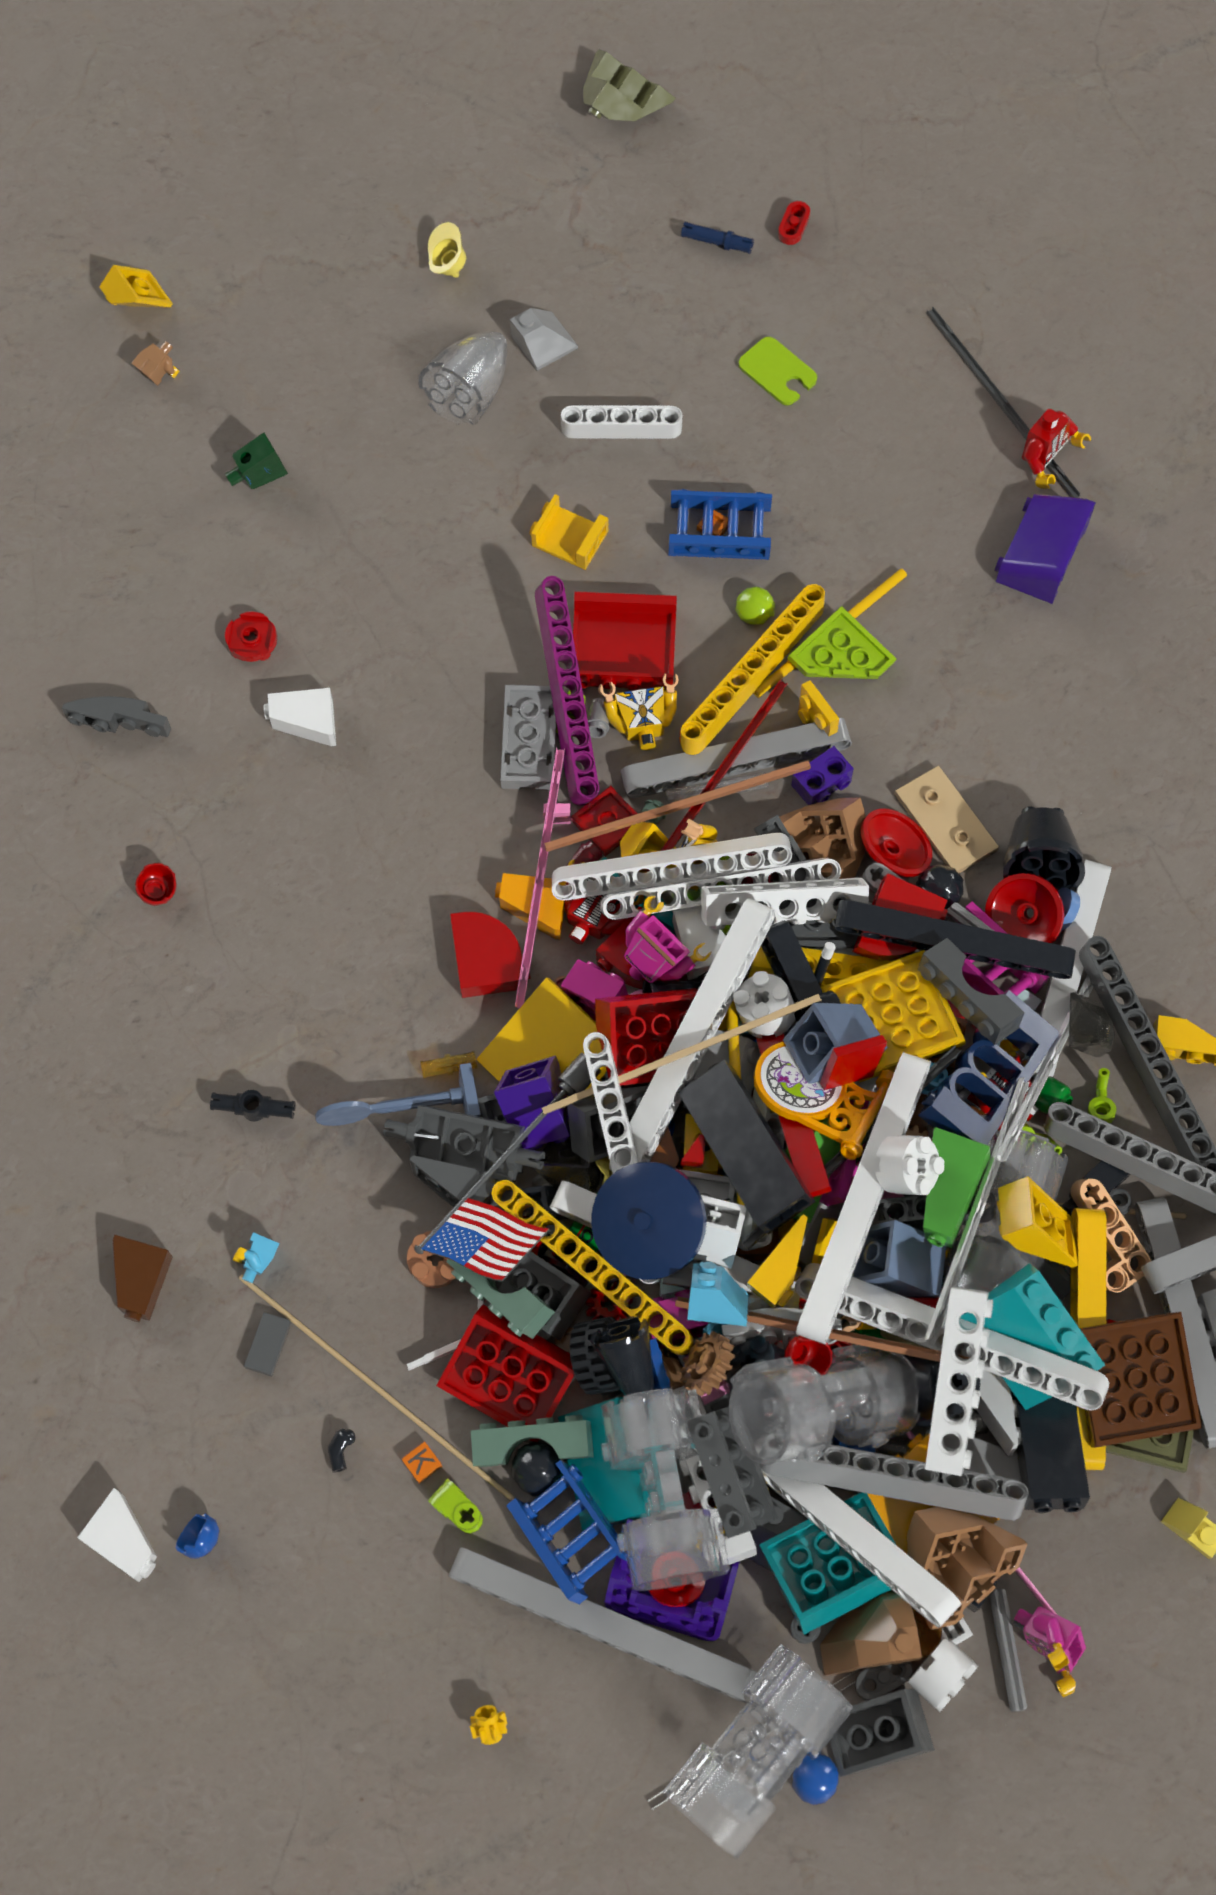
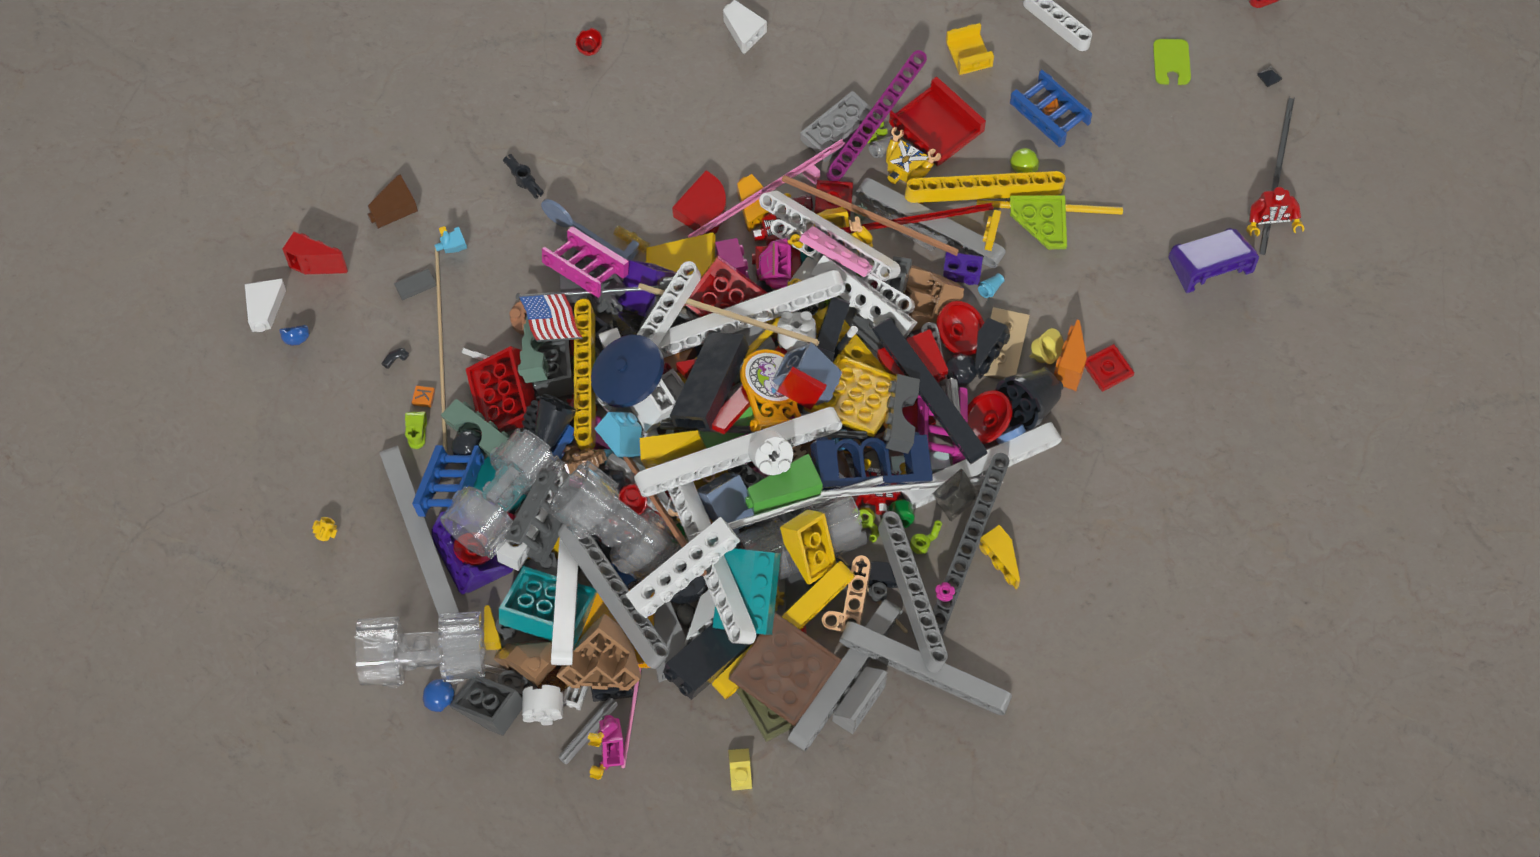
camera: 45 degrees right, 5 degrees down
(120, 1428) = (313, 256): none -> red slope
(444, 1117) = (588, 247): none -> dark pink fence
(702, 879) = (831, 248): none -> bright pink wing
(776, 1637) = (491, 635): none -> yellow slope
(868, 771) = (989, 286): none -> medium azure cone
(886, 305) = (1269, 76): none -> black slope
(939, 831) = (990, 341): none -> black slope
(994, 785) = (1047, 347): none -> light yellow piece
(1034, 770) = (1072, 359): none -> orange slope
(1067, 750) = (1108, 367): none -> red tile
(1188, 1141) = (945, 596): none -> dark pink plate

